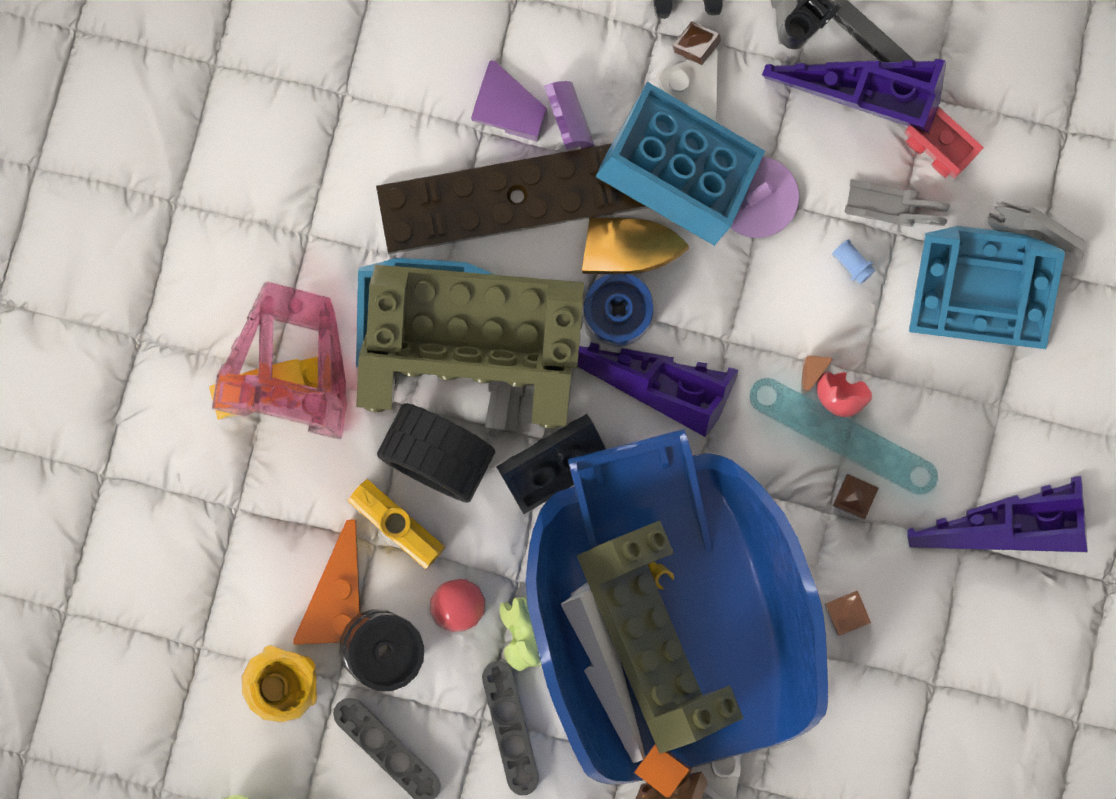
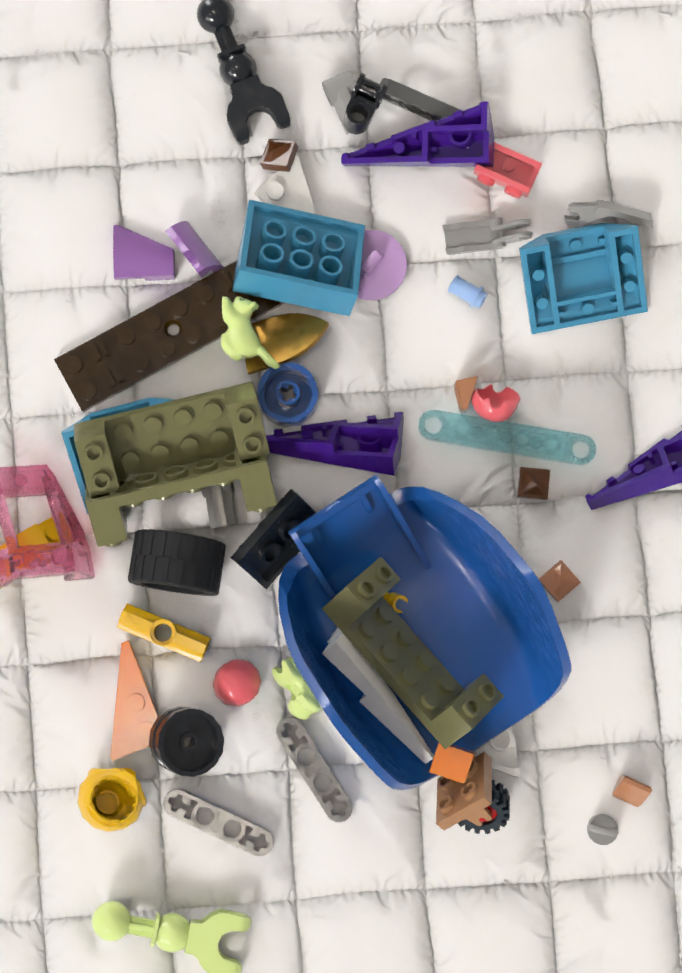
camera: 25 degrees left, 0 degrees up
(587, 230) = (240, 338): none -> yellowish green animal

